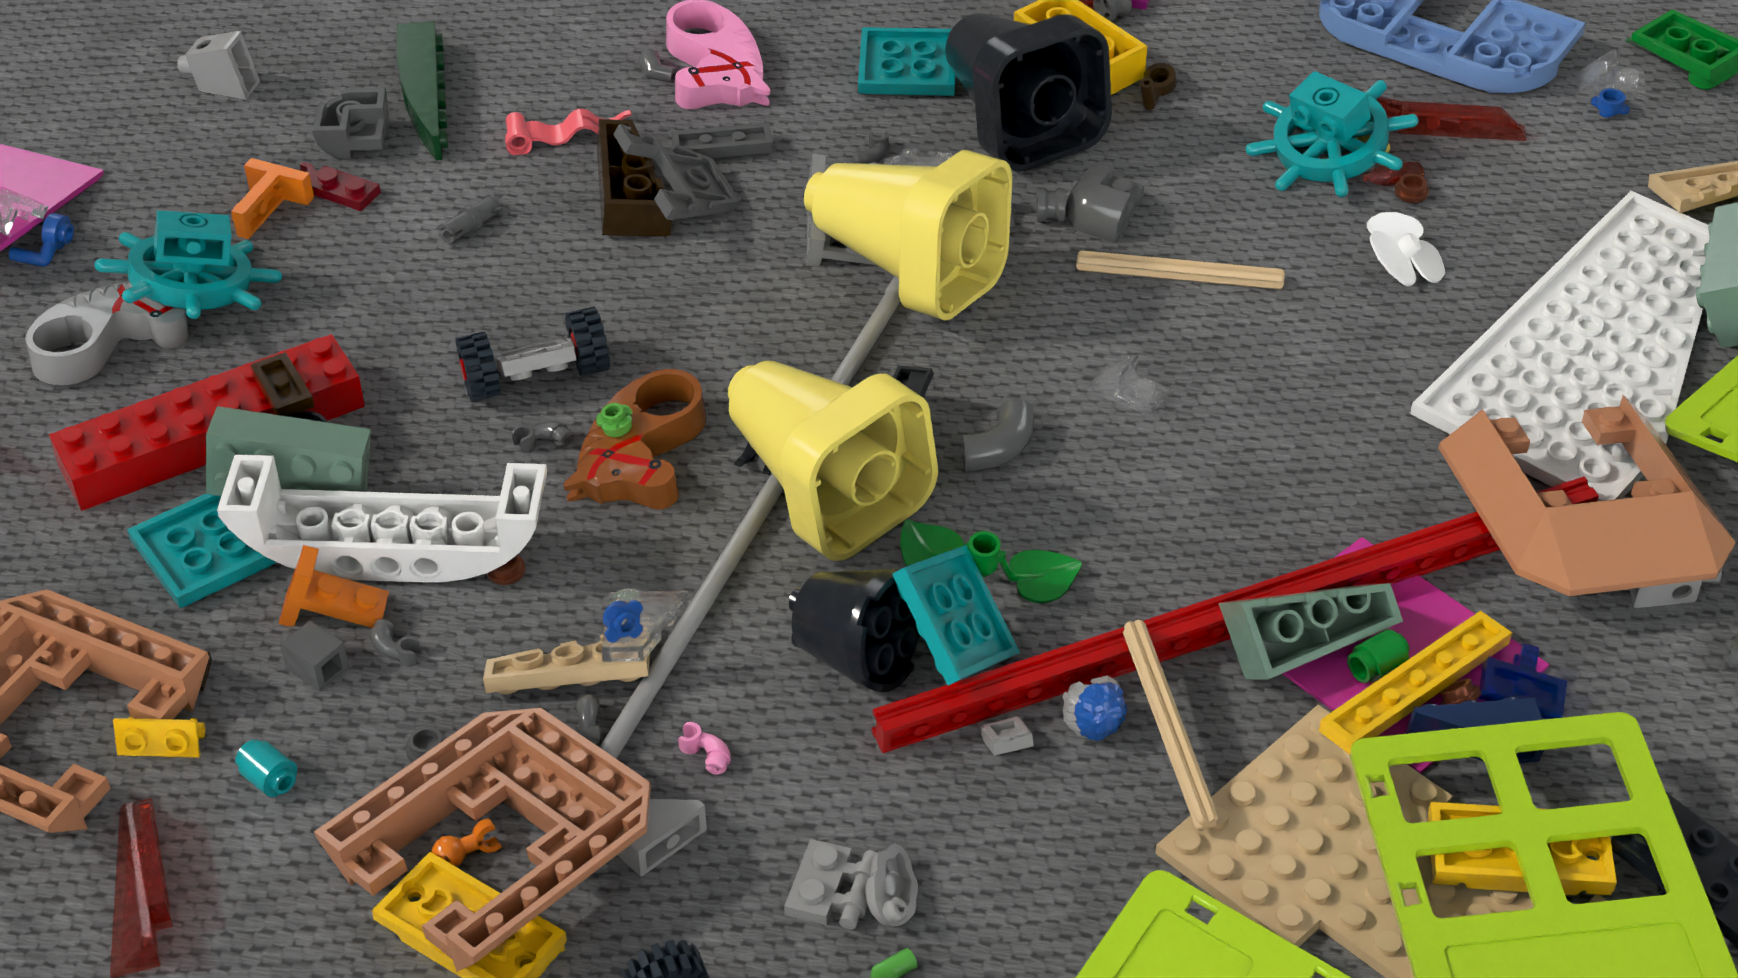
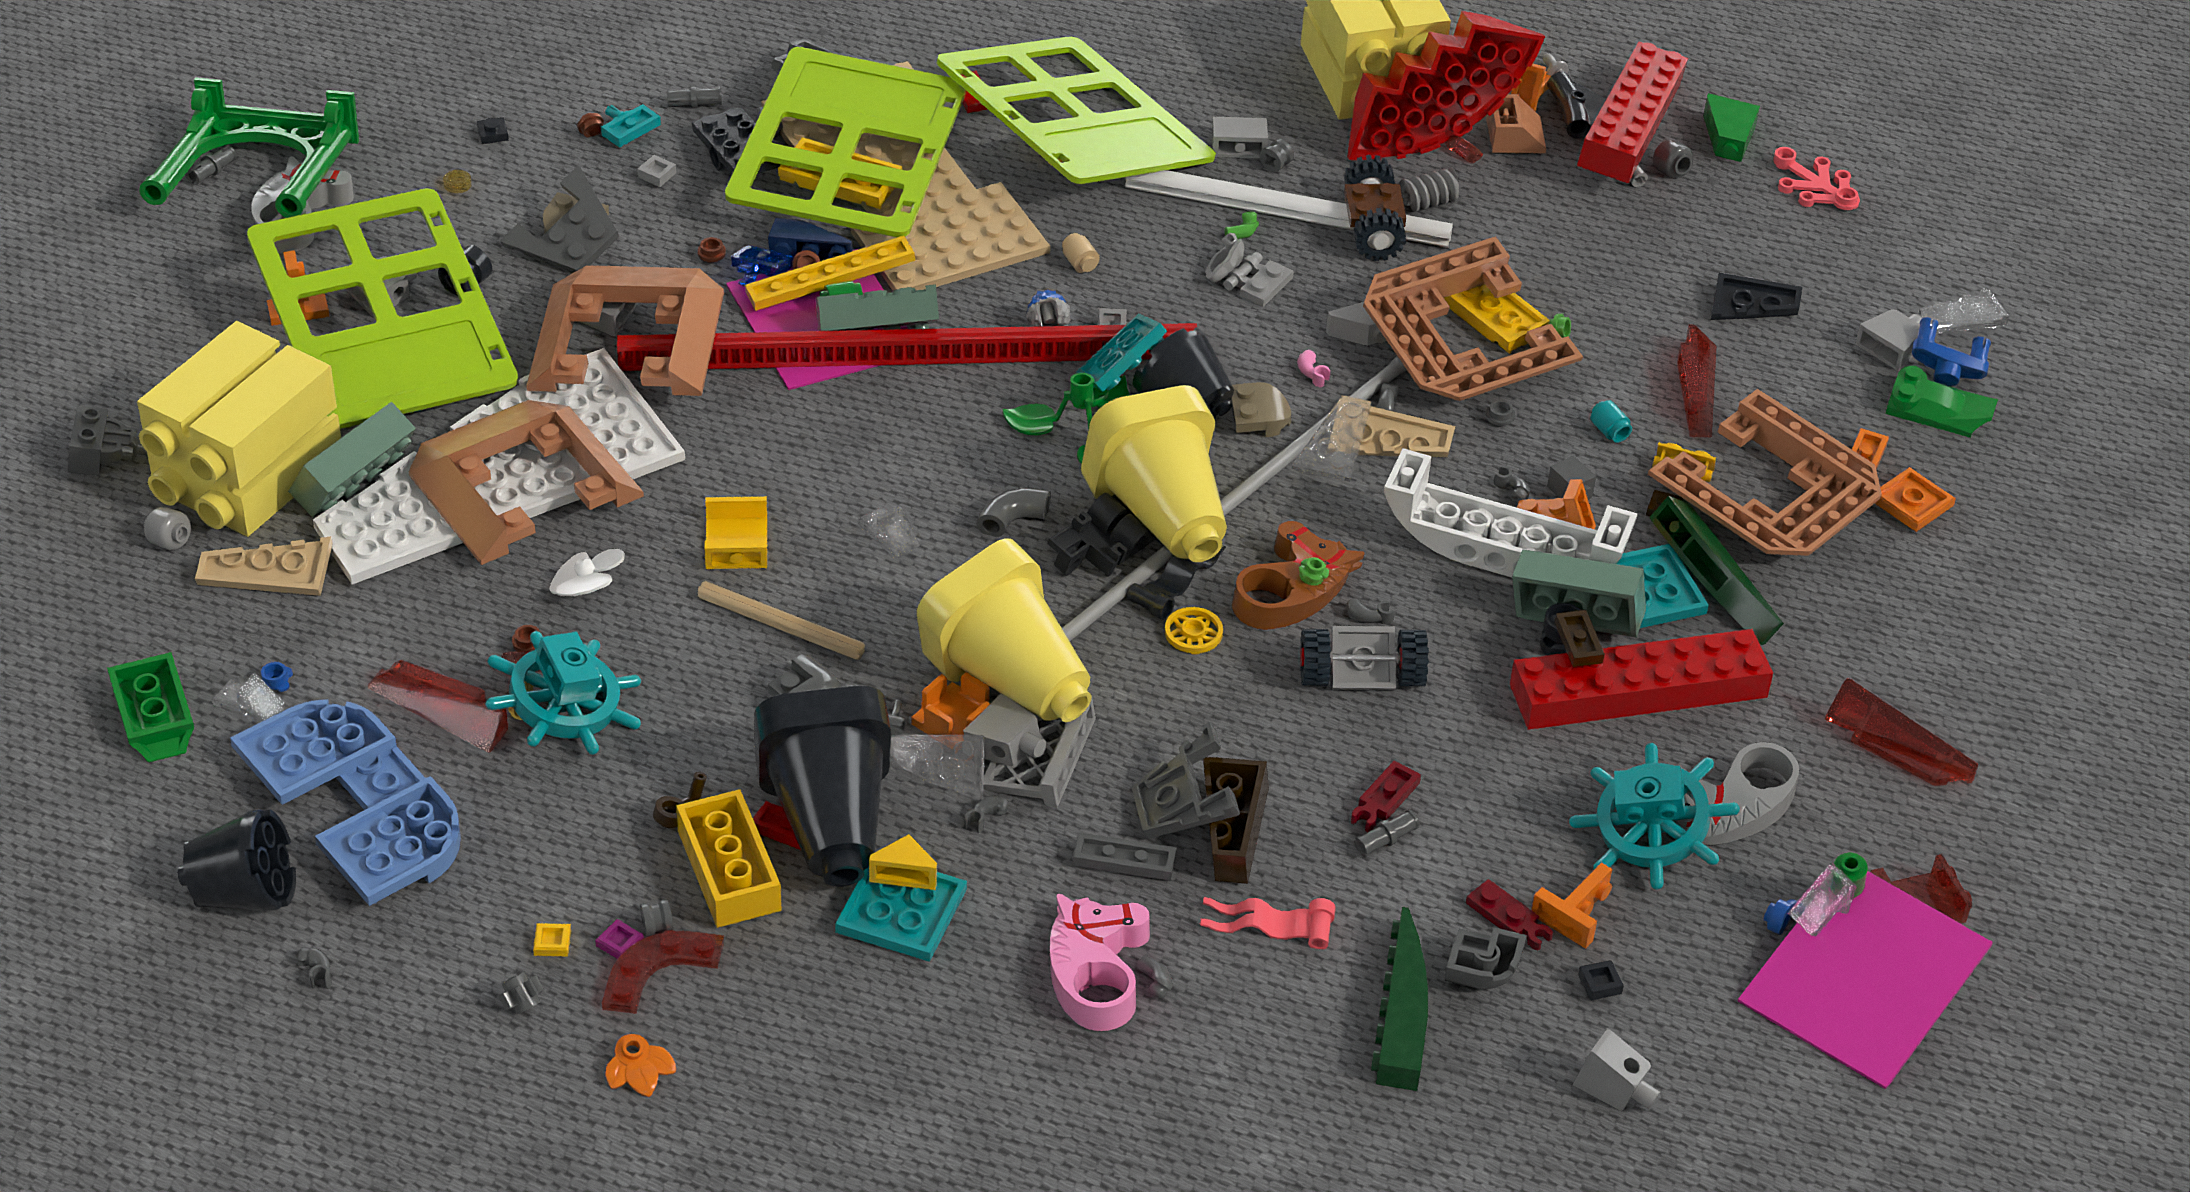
camera: 165 degrees left, 0 degrees up
(123, 580) = (1715, 567): none -> dark green slope
(238, 146) = (1600, 980): none -> black plate
(357, 909) = (1561, 324): none -> bright green plate
(455, 850) = (1494, 349): orange arm -> none
(478, 251) = (1385, 794): none -> dark red plate
(616, 614) = (1354, 395): blue plate -> none
(729, 365) = (1193, 630): none -> yellow wheel
(755, 653) = (1260, 408): none -> dark tan slope
(915, 60) = (903, 865): none -> yellow slope
(1105, 837) = (1080, 253): none -> tan brick
(1170, 726) = (1010, 280): tan axle -> none
(1282, 335) = (736, 532): none -> yellow panel
(1604, 698) = (711, 250): none -> copper plate
(1611, 358) = (453, 464): none -> nougat slope

